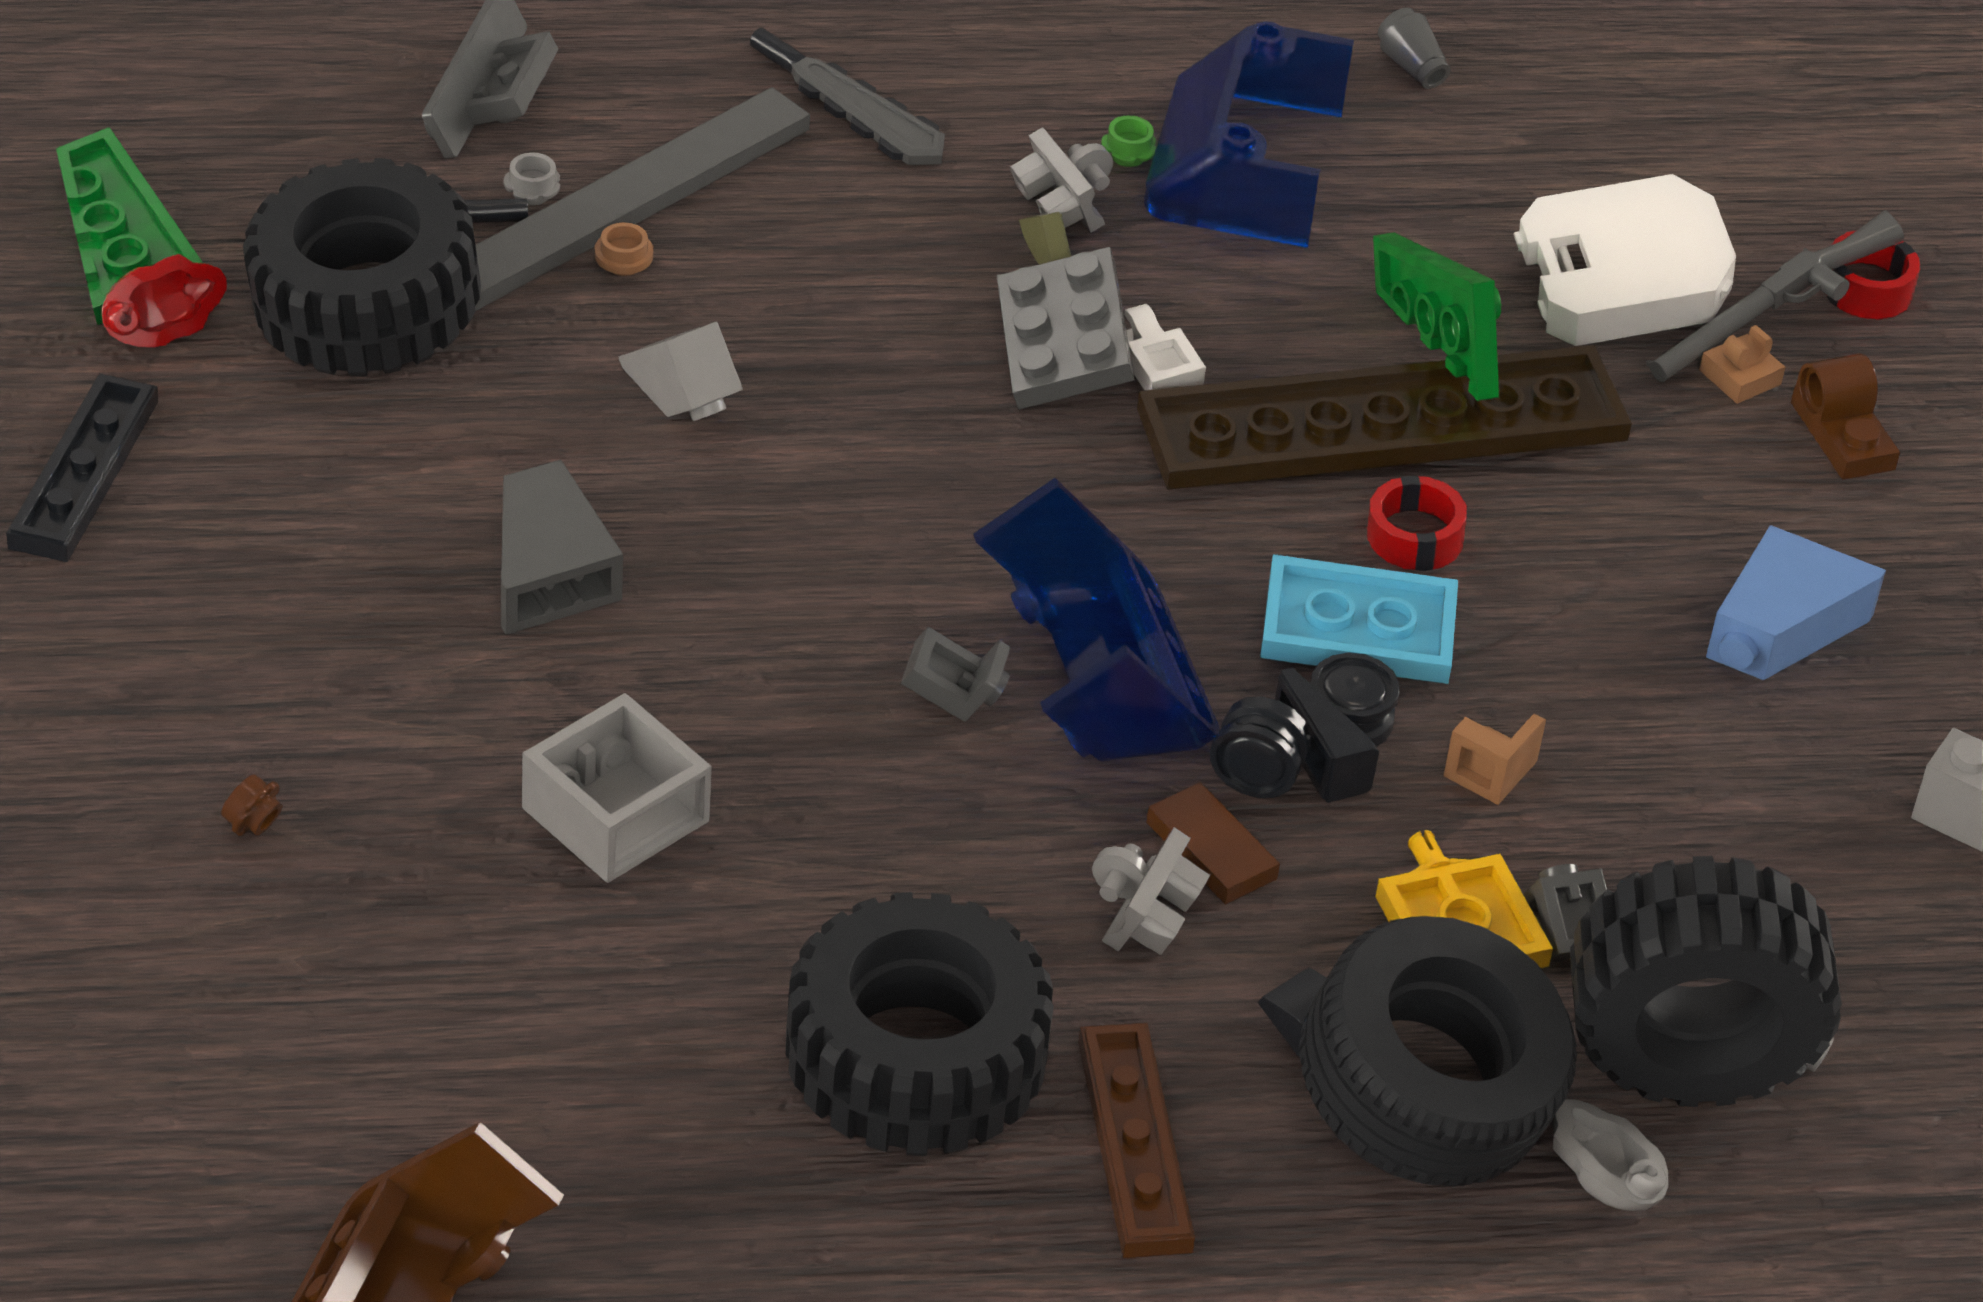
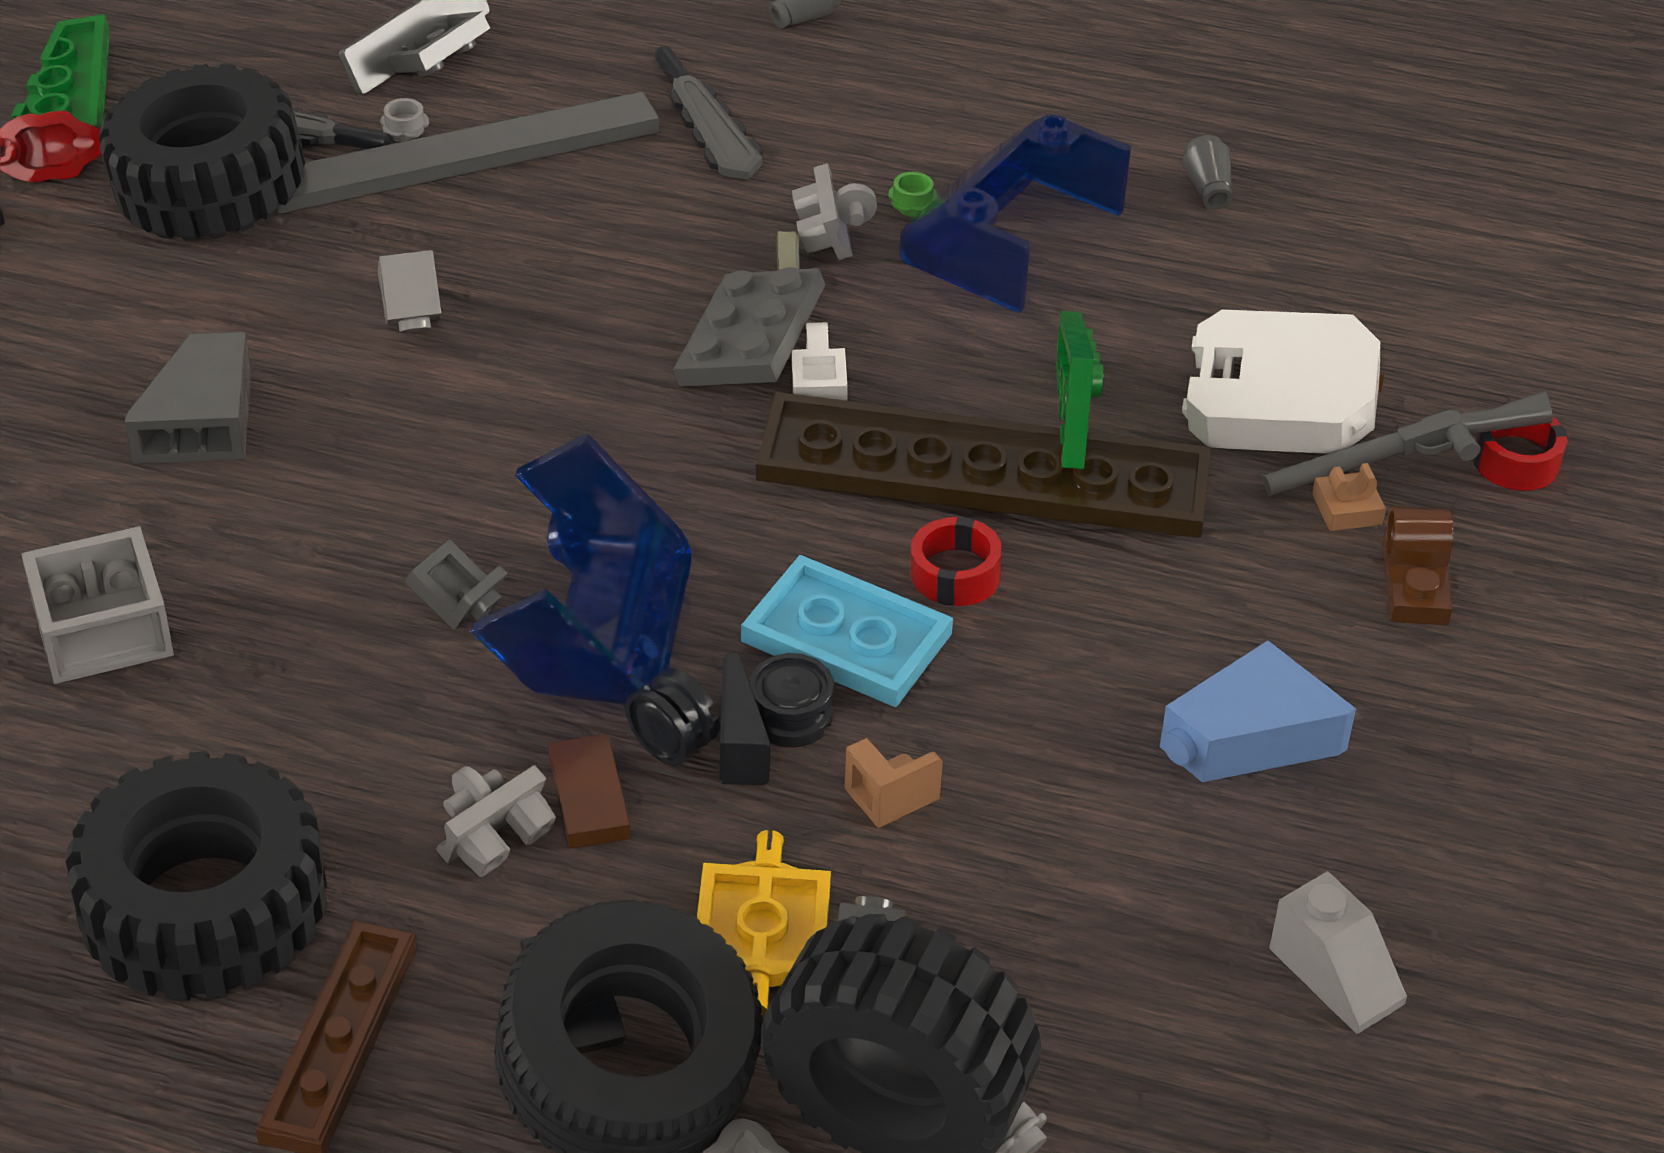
camera: 25 degrees right, 0 degrees up
(623, 249) = (436, 188): medium nougat plate -> none

